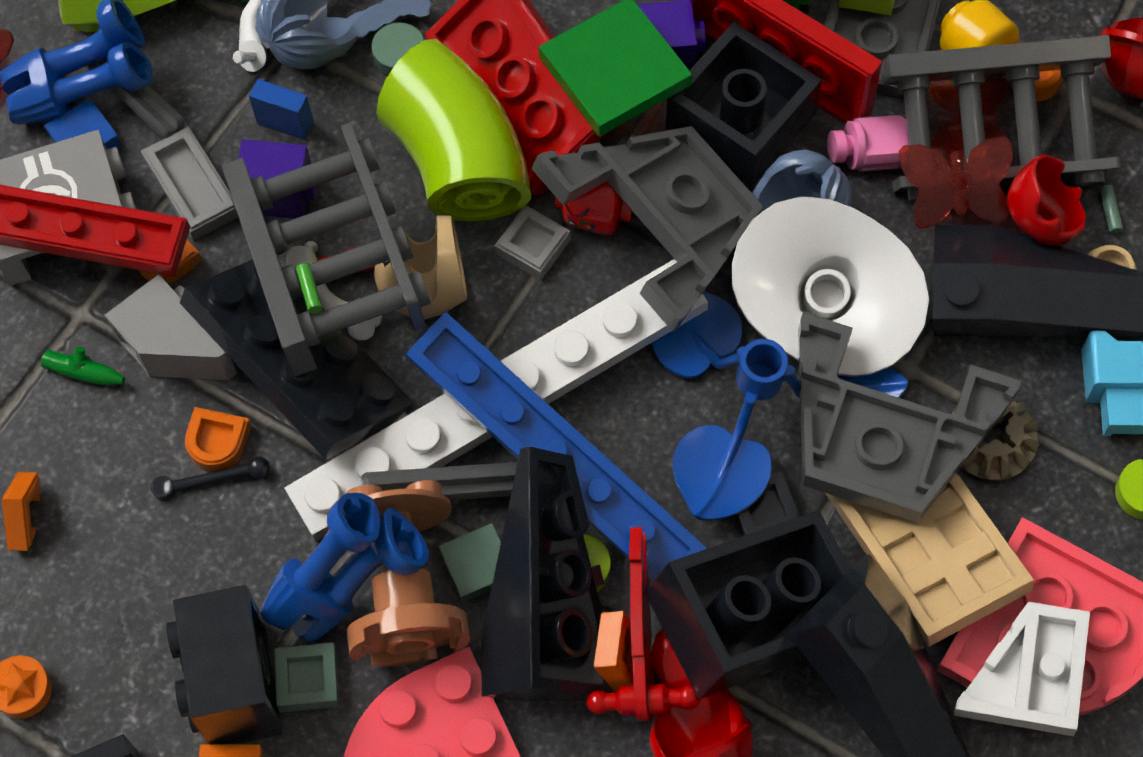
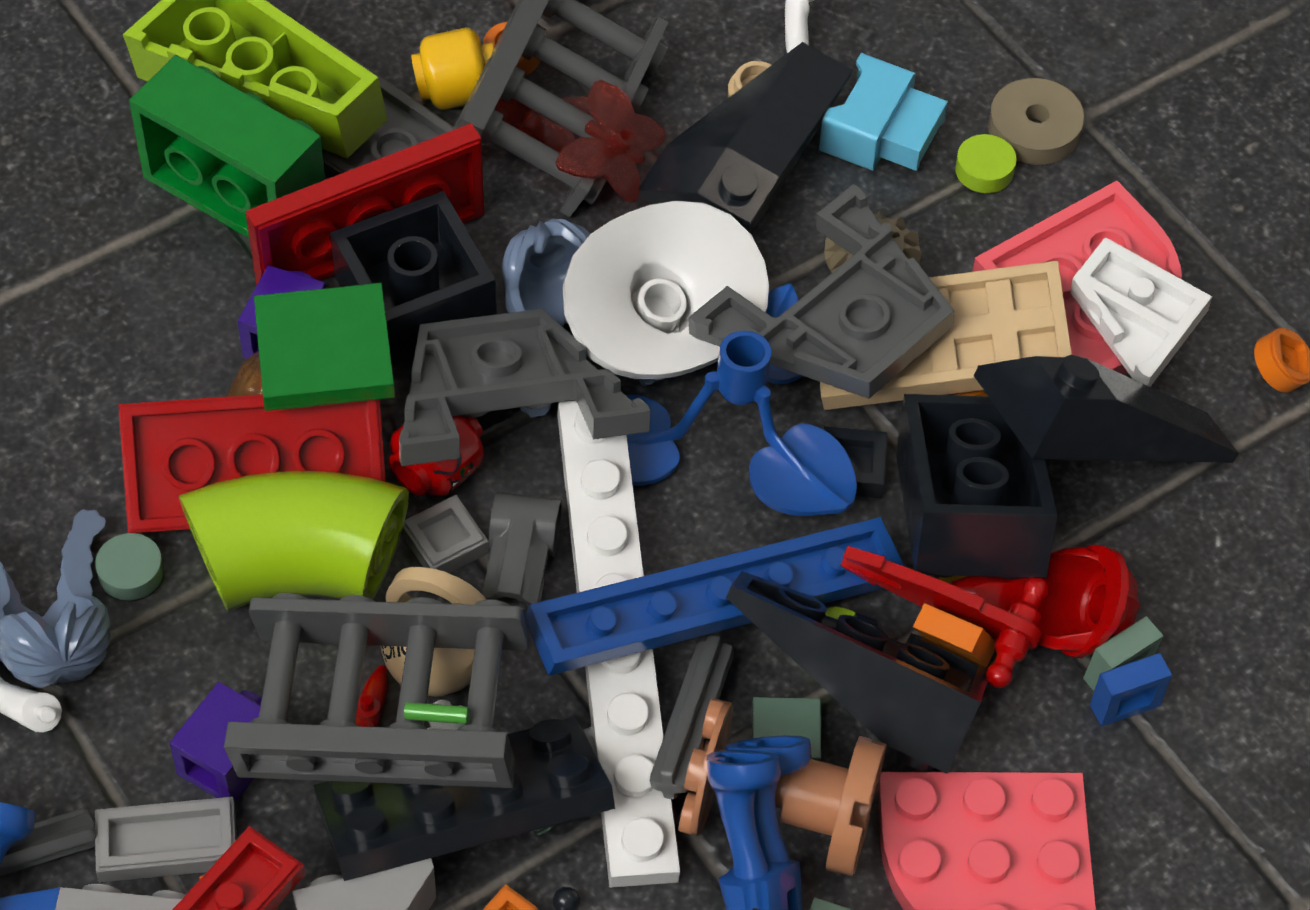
camera: 70 degrees left, 10 degrees down
(281, 109) = (139, 702): blue tile -> none
(550, 294) = (521, 539): none -> dark grey piece
(869, 143) = (513, 201): bright pink arm -> none
(1044, 205) = (677, 92): red hair -> none
(1111, 209) = (689, 62): sand green piece -> none

